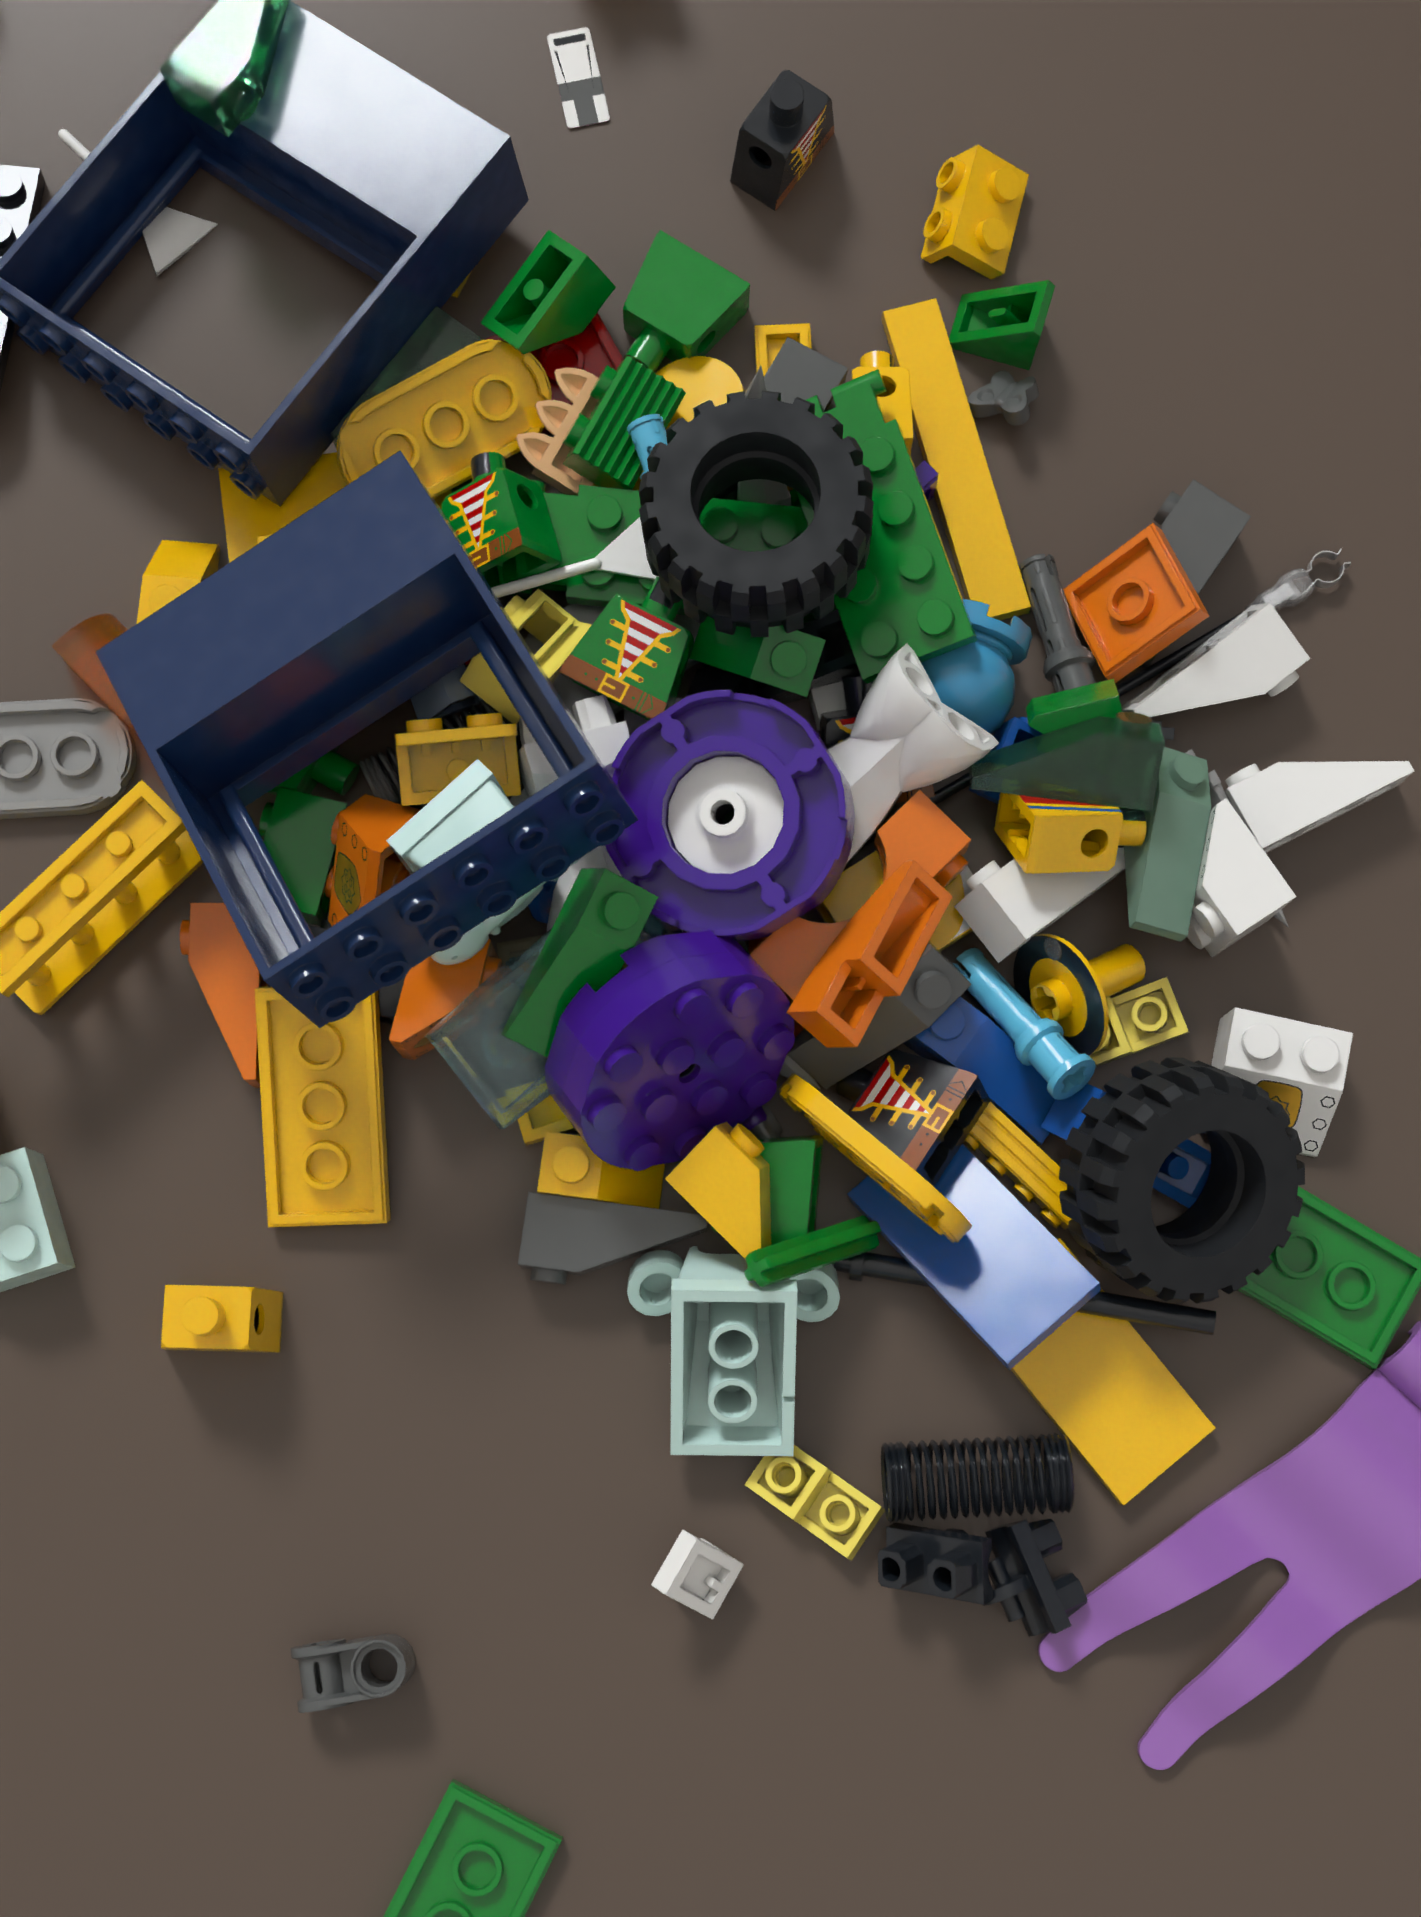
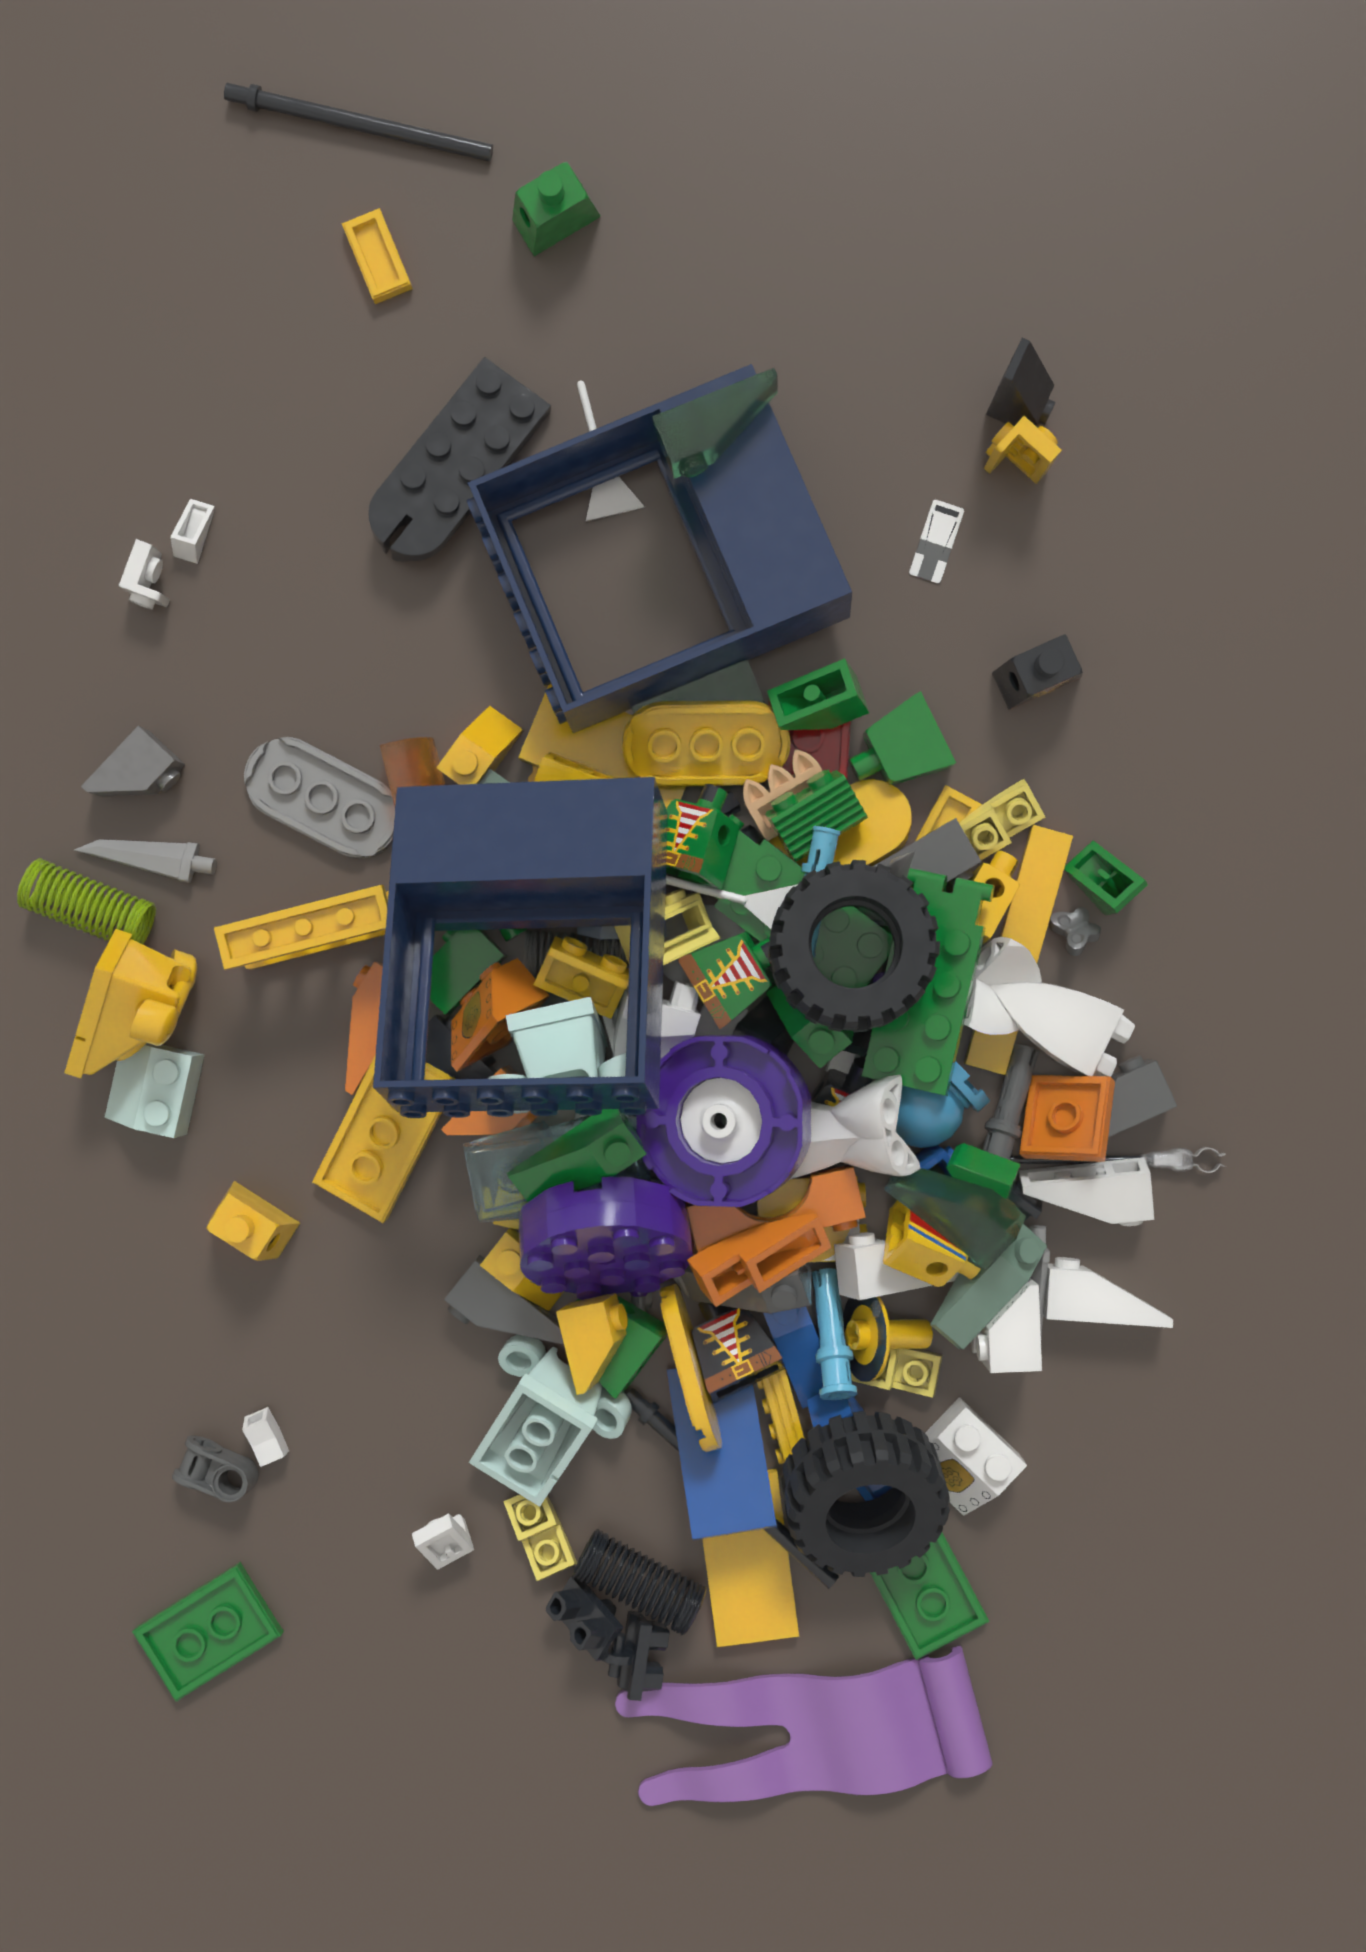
camera: 30 degrees right, 10 degrees up
(391, 1588) = (265, 1436): none -> white piece
(812, 1251) = (619, 1402): green axle -> none
(846, 318) = (1001, 818): none -> light yellow slope
(975, 211) = (1134, 791): yellow bracket -> none
(1053, 497) = (1056, 1019): none -> white hips

